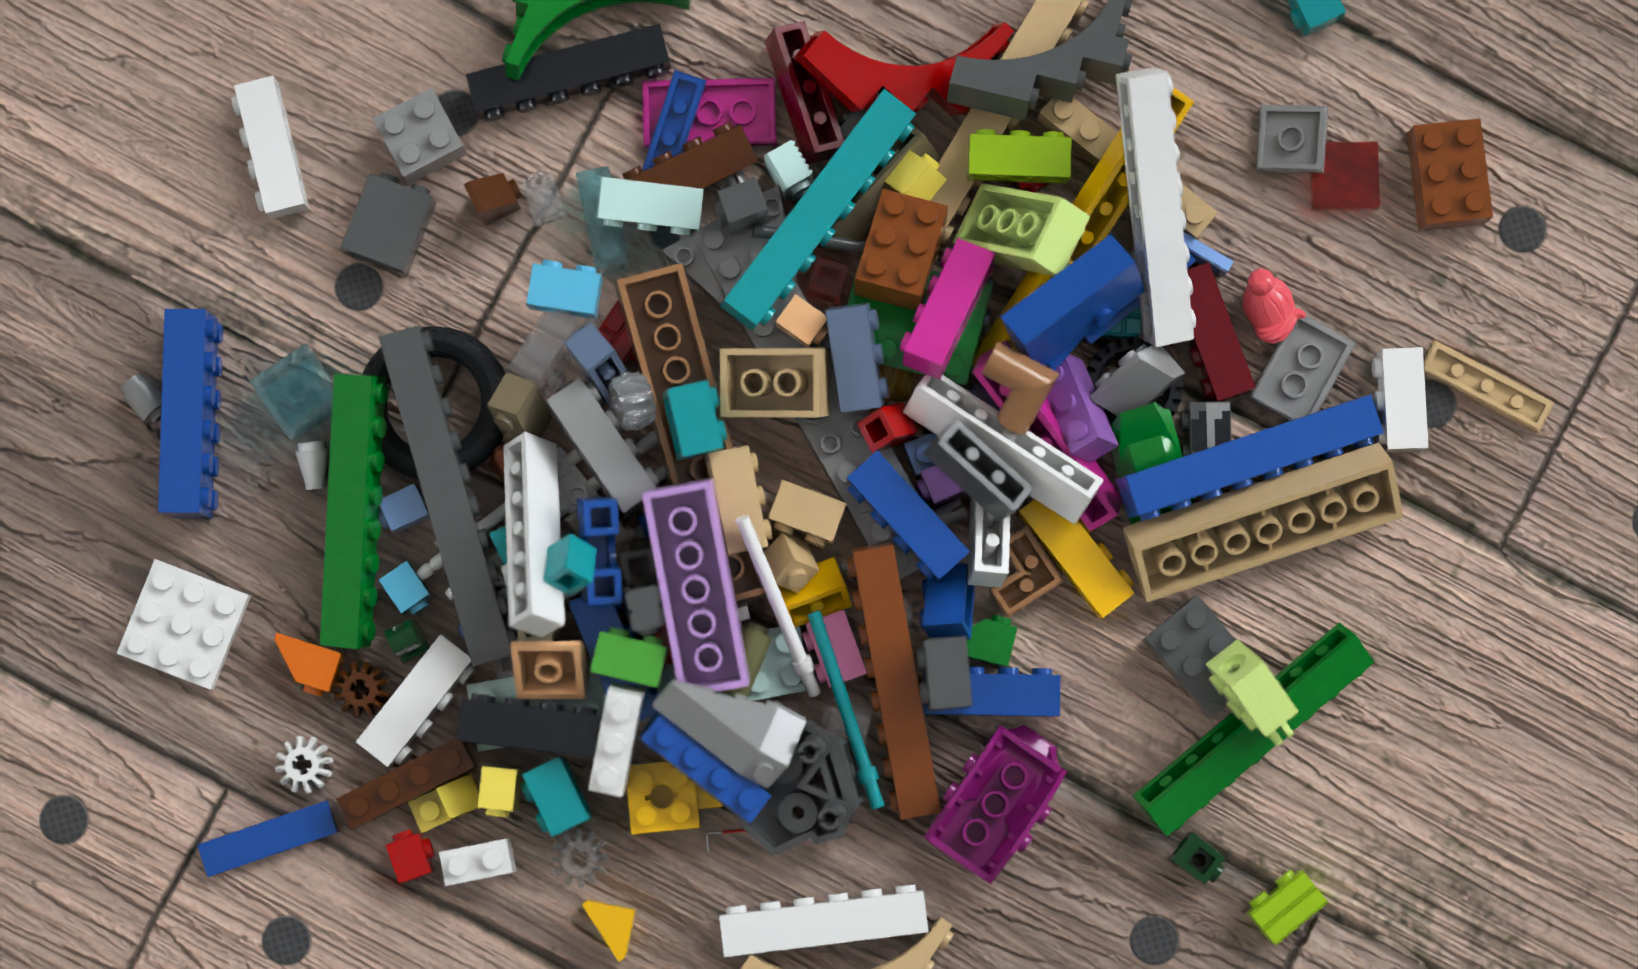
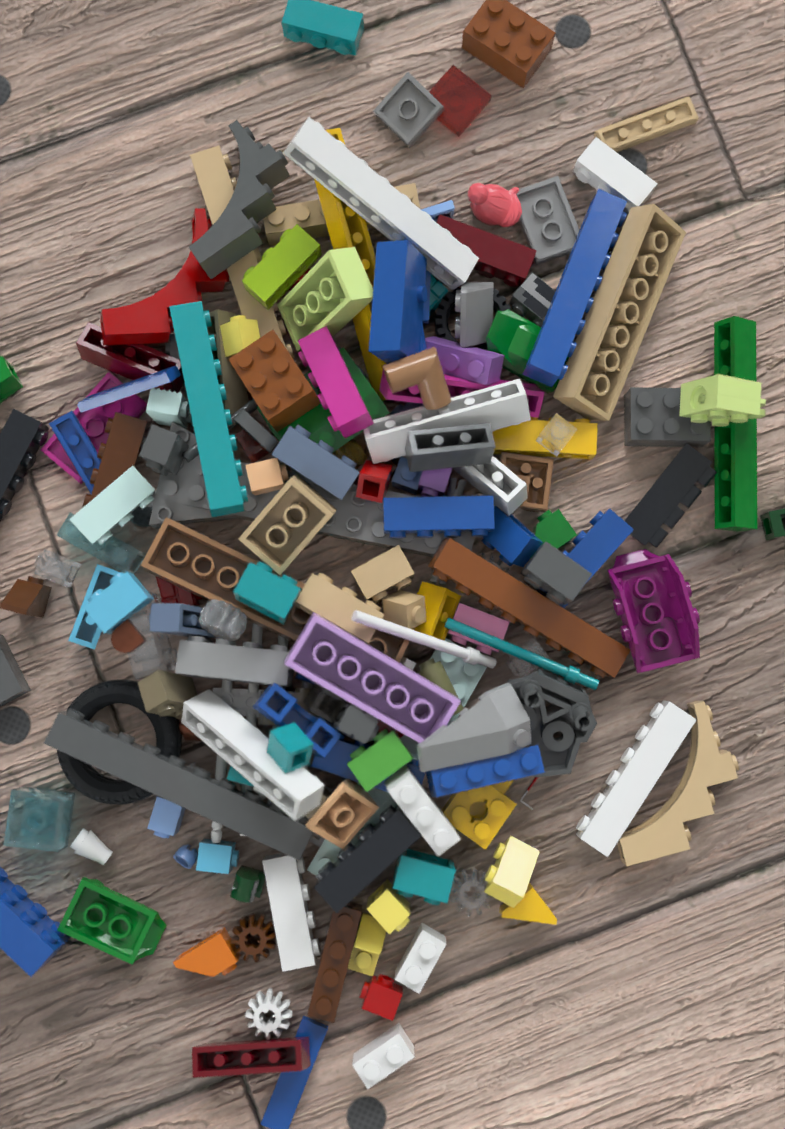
camera: 45 degrees left, 0 degrees up
(183, 624) = (118, 1013): white plate -> none
(254, 780) = (251, 1057): none -> dark red brick
(263, 544) = (112, 922): none -> green slope
(353, 510) = (139, 849): green brick -> none
(358, 904) = (383, 1055): none -> white brick
(385, 561) = (186, 857): none -> medium blue hinge
(513, 278) = (85, 629): none -> medium azure brick
(539, 326) = (127, 637): none -> copper tile
(632, 877) = (511, 871): none -> light yellow brick
(773, 118) = (129, 389): none -> tile
(837, 274) = (256, 431): none -> dark grey beam
(1085, 562) = (556, 434): none -> clear brick
(1126, 720) = (671, 488): none -> black windscreen

